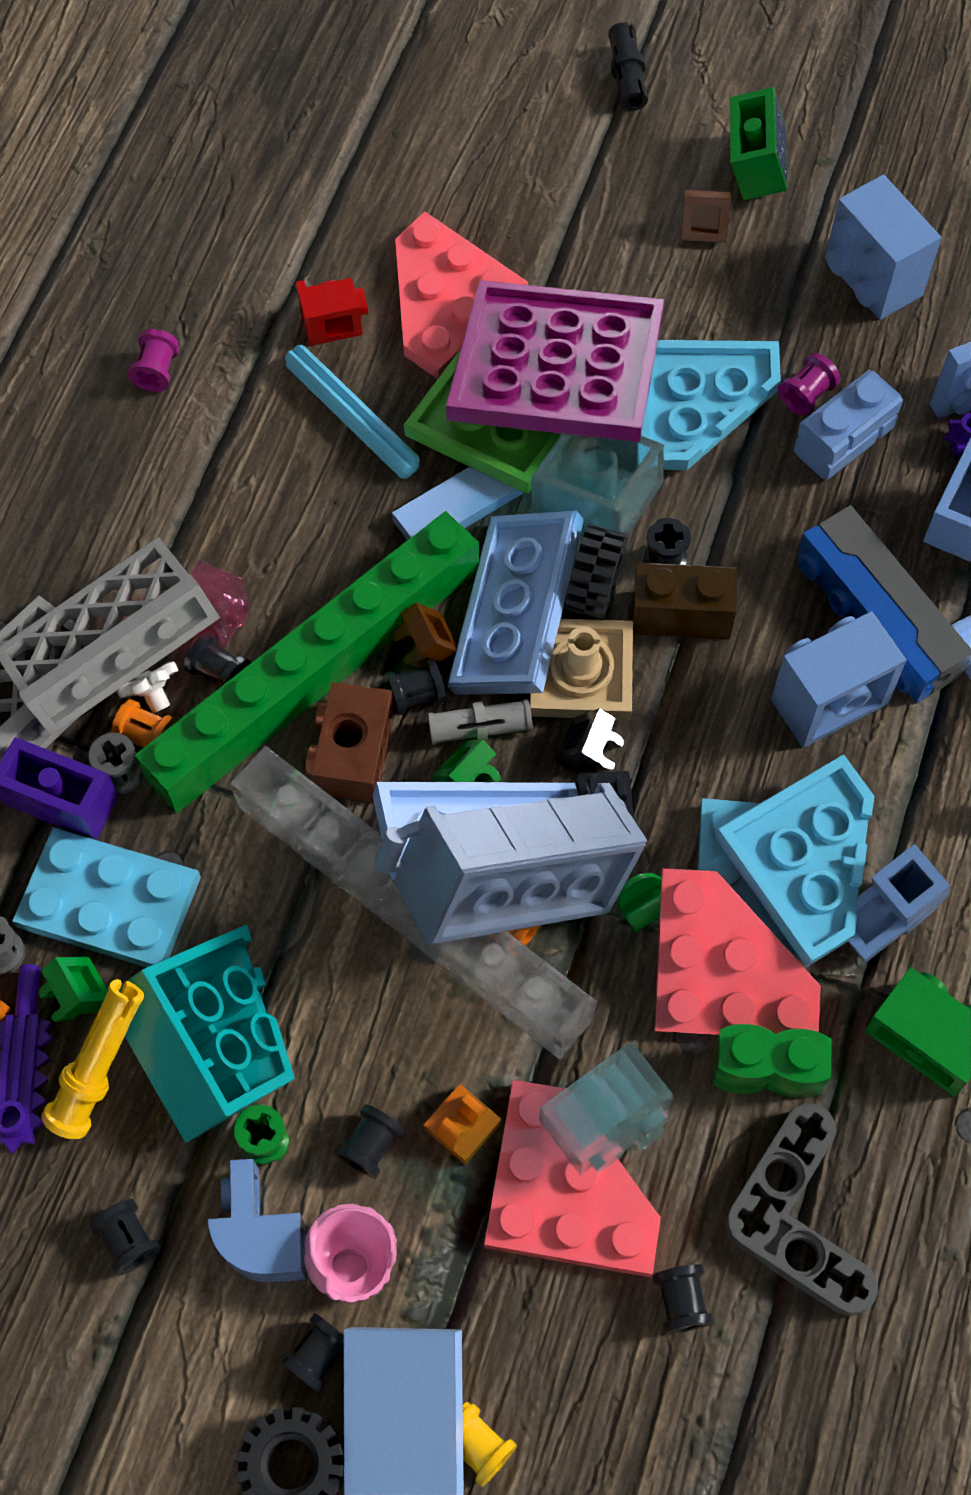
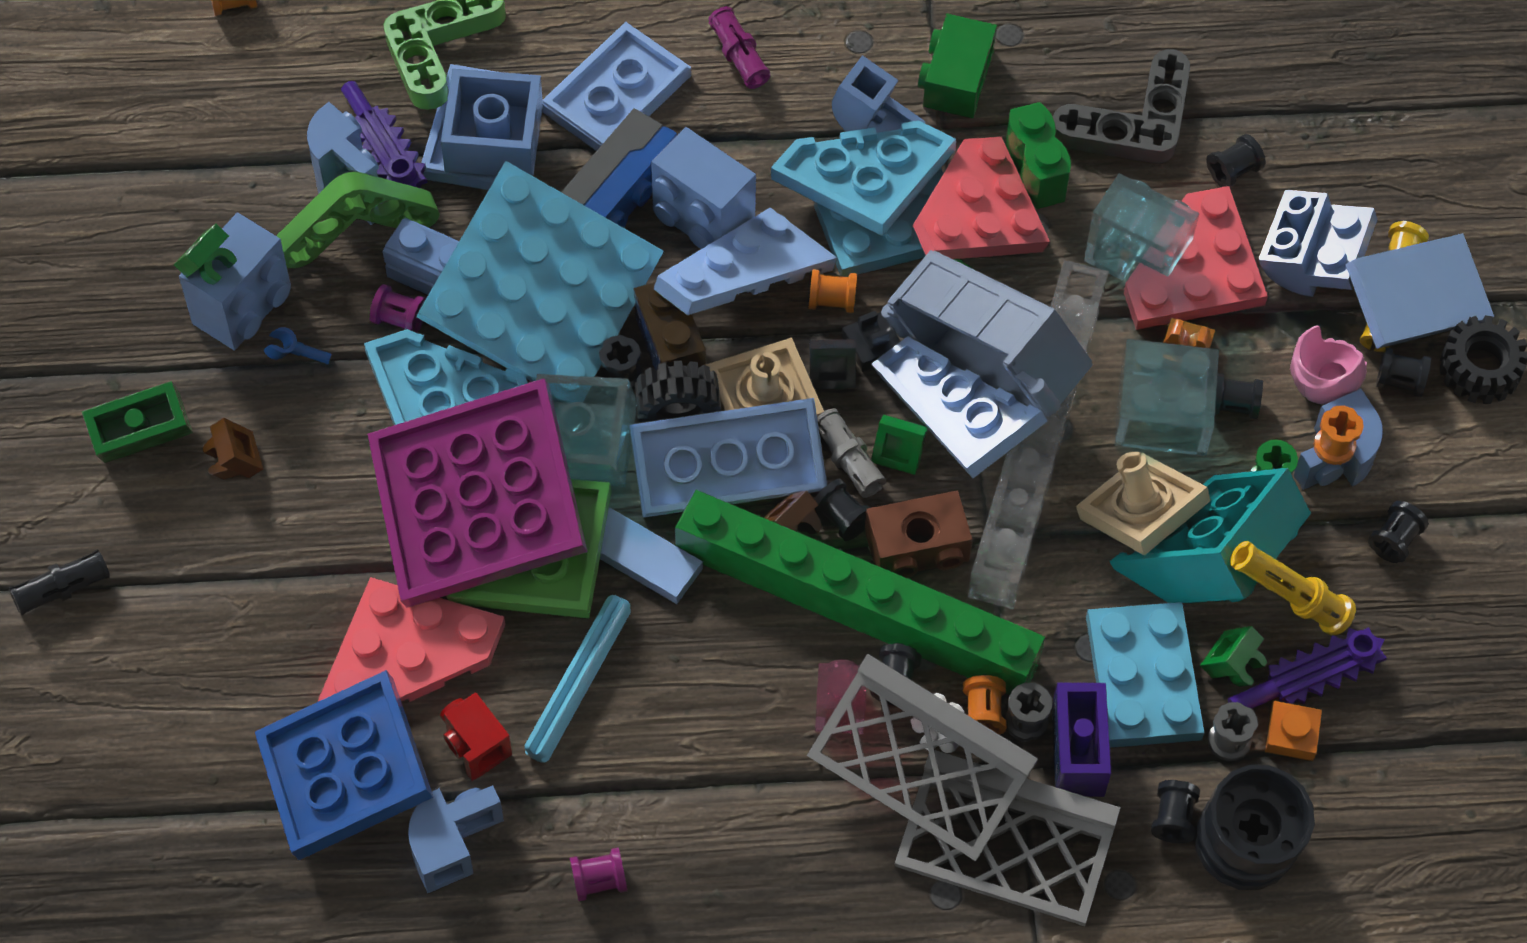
camera: 115 degrees left, 5 degrees down
(239, 1177) = (1338, 435): none -> orange bush
(249, 255) = (438, 832): none -> medium blue brick
(279, 970) = (1143, 502): none -> tan plate
(344, 199) = (343, 765): none -> blue plate
(397, 1056) = (1166, 397): none -> clear light blue brick
(526, 1333) = (1314, 242): none -> medium blue brick
(677, 777) = (832, 291): none -> orange bush
(739, 701) = (743, 261): none -> light blue wing
(781, 490) = (538, 279): none -> medium azure plate
(802, 295) = (294, 347): none -> blue hand
(890, 182) = (202, 254): none -> green tile
(927, 337) = (345, 200): none -> bright green beam

